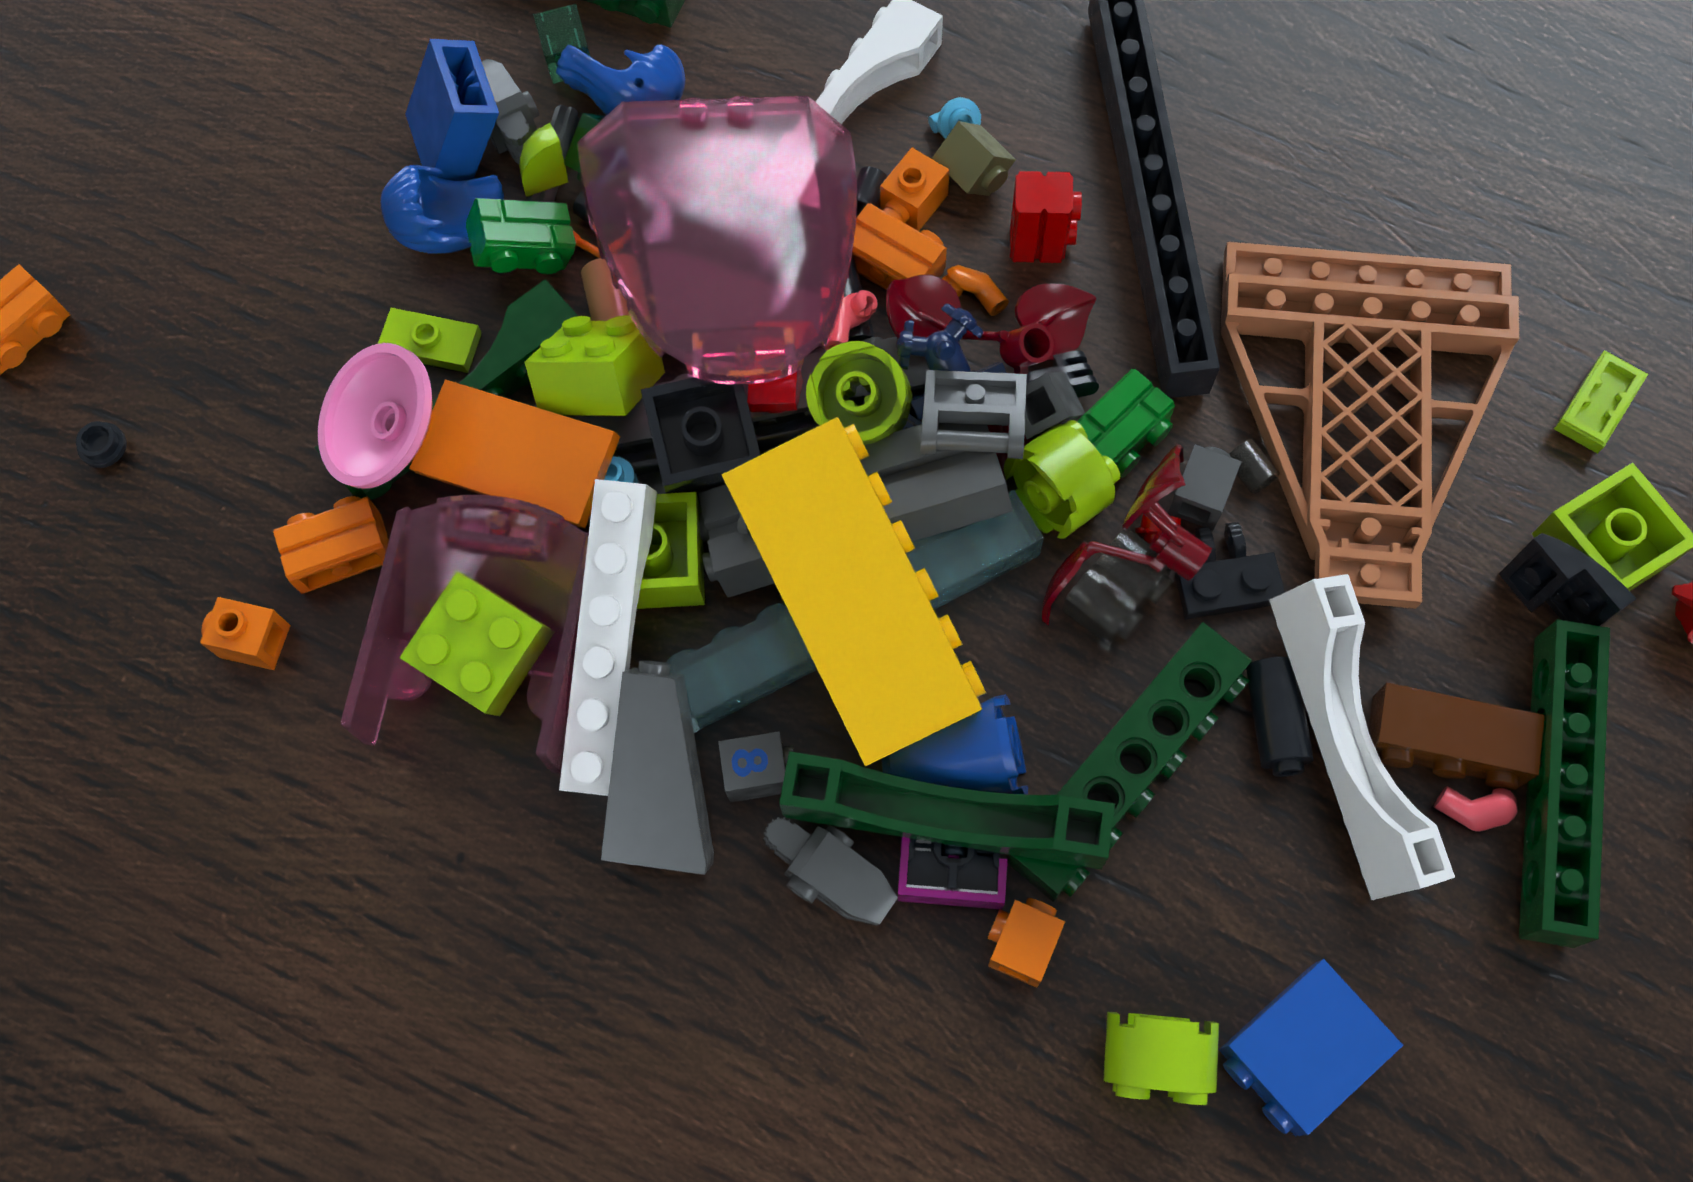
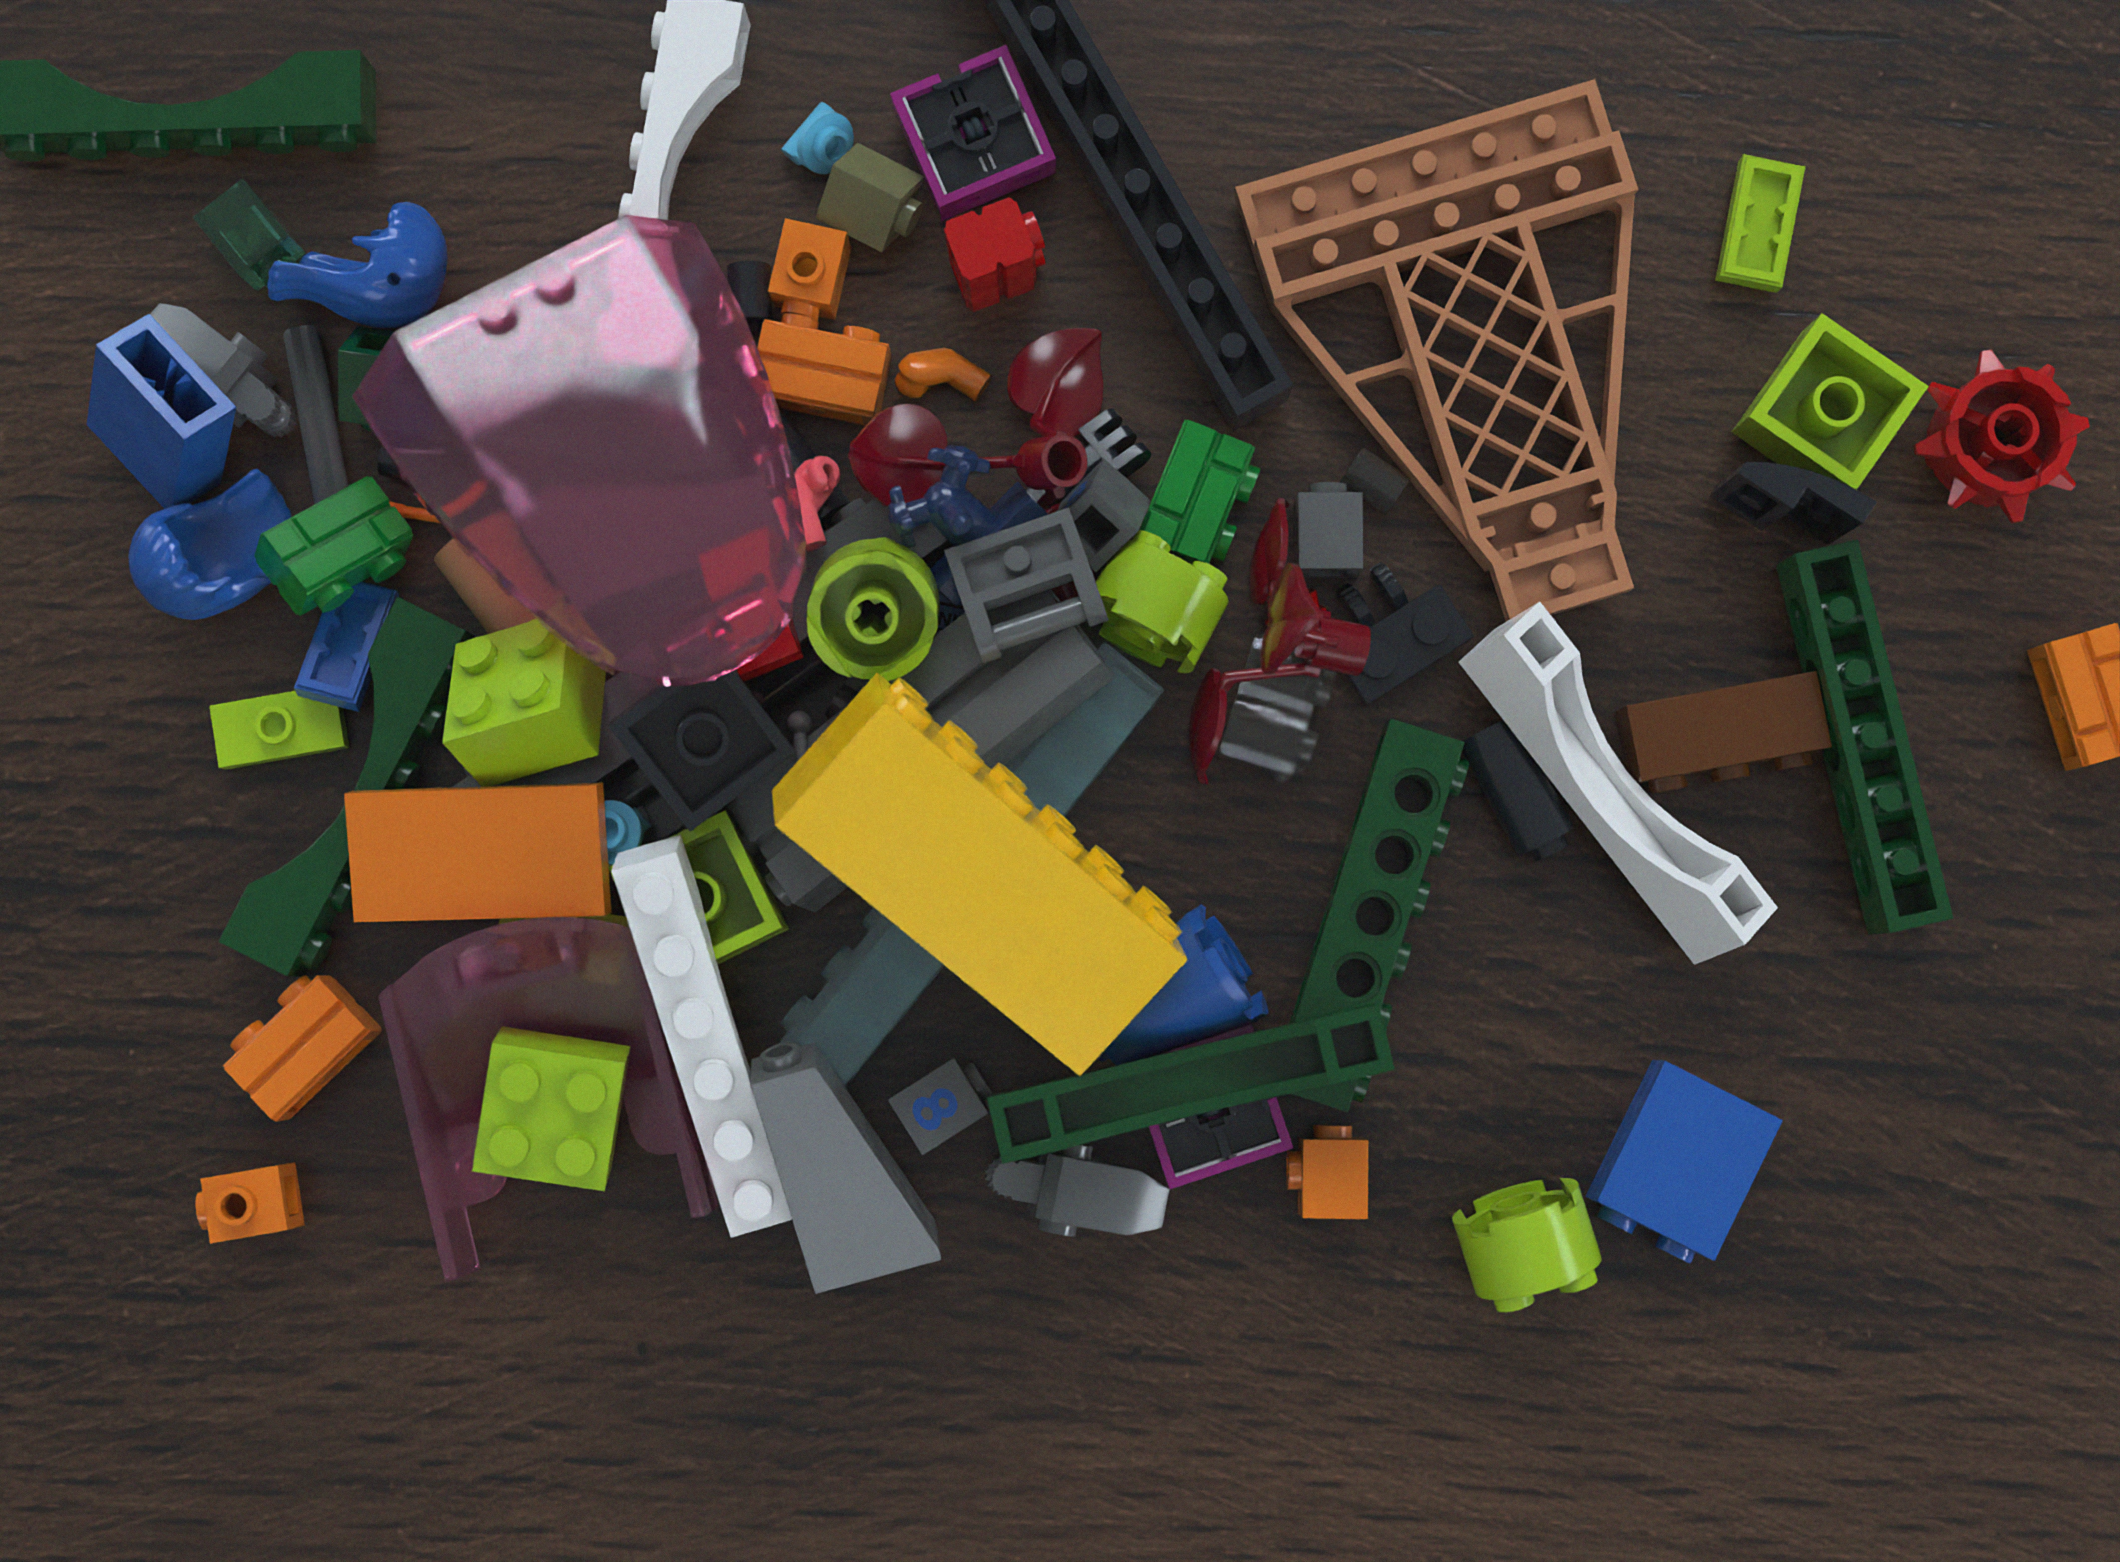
camera: 25 degrees left, 15 degrees up
(375, 416) = (285, 884): bright pink dish -> none
(485, 309) = (337, 658): none -> blue plate
(542, 161) = (312, 433): lime brick -> none
(1064, 140) = (949, 128): none -> piece
(1481, 813) = (1782, 808): coral arm -> none

